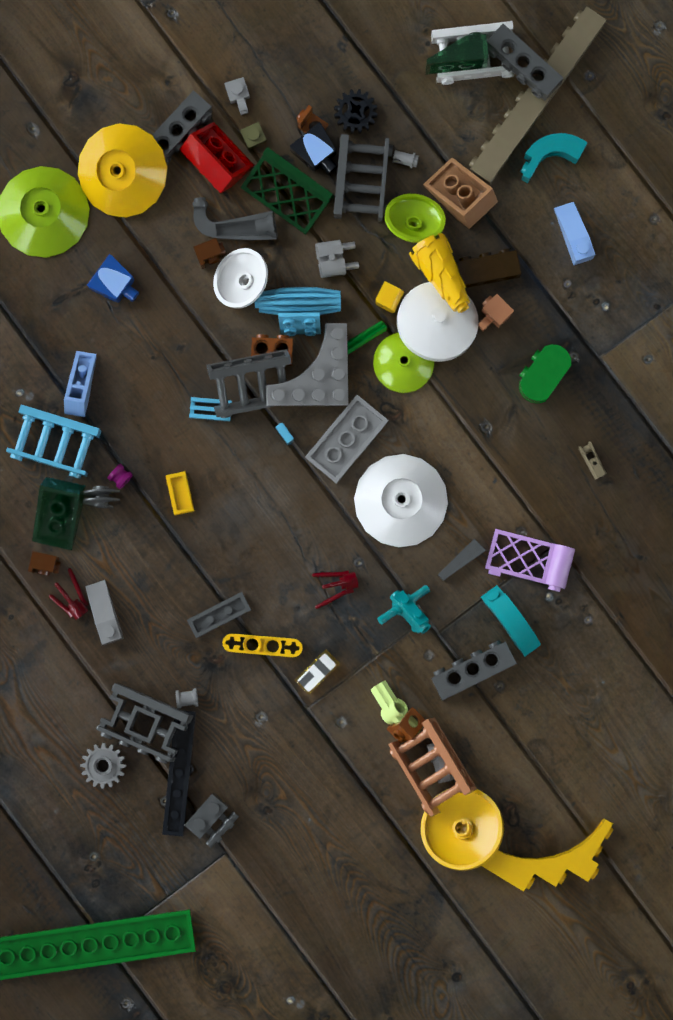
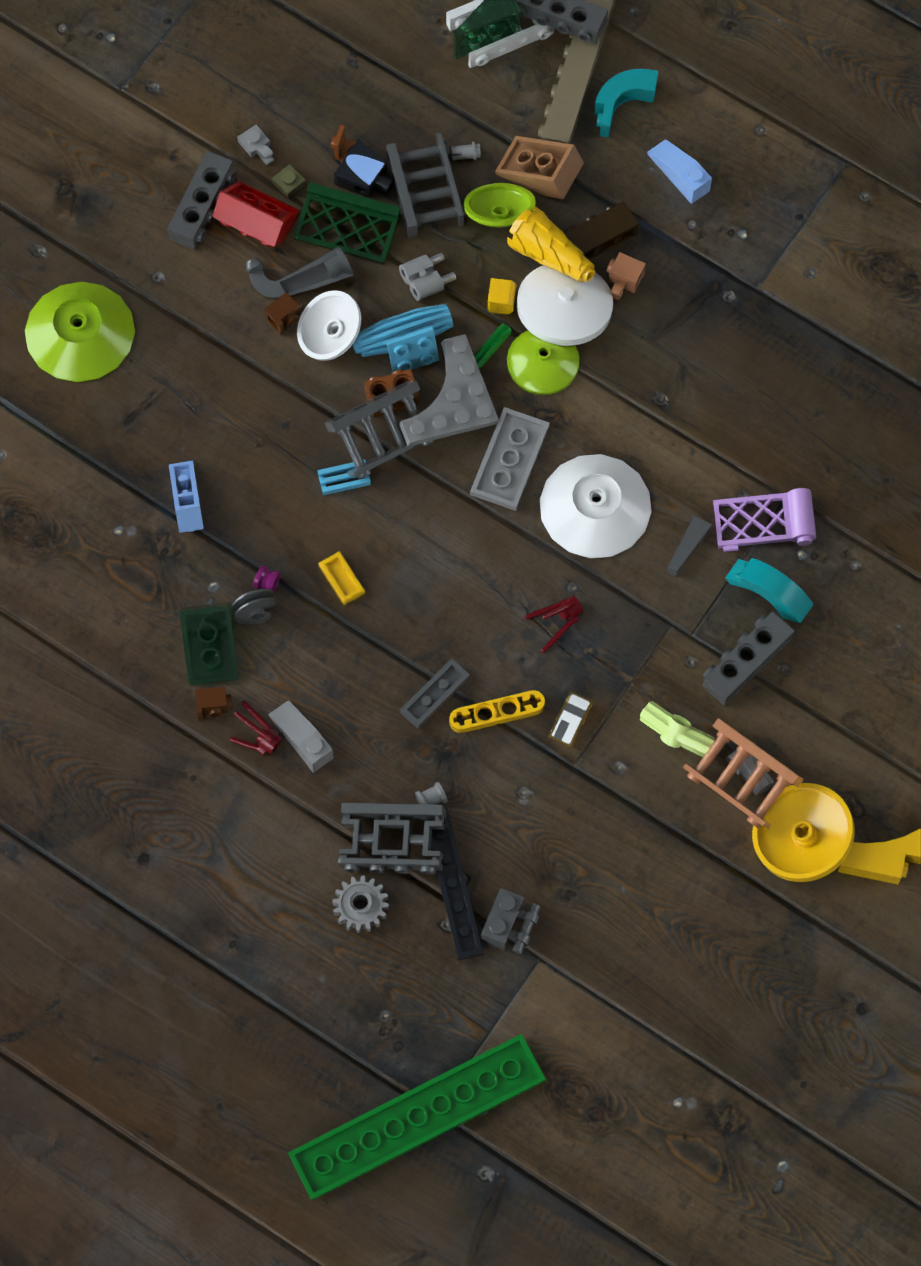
camera: 20 degrees left, 15 degrees down
(68, 428) = (166, 544): medium azure fence -> none
(113, 281) = (185, 376): blue torso -> none
(141, 168) = (174, 271): yellow dish -> none
(285, 434) = (438, 474): medium azure tile -> none
(362, 106) = (393, 122): black gear -> none
(402, 730) = (694, 746): dark orange bracket -> none
(406, 606) = (645, 613): teal piece -> none
(544, 373) = (703, 320): green brick -> none
(594, 464) = (795, 396): dark tan bar -> none

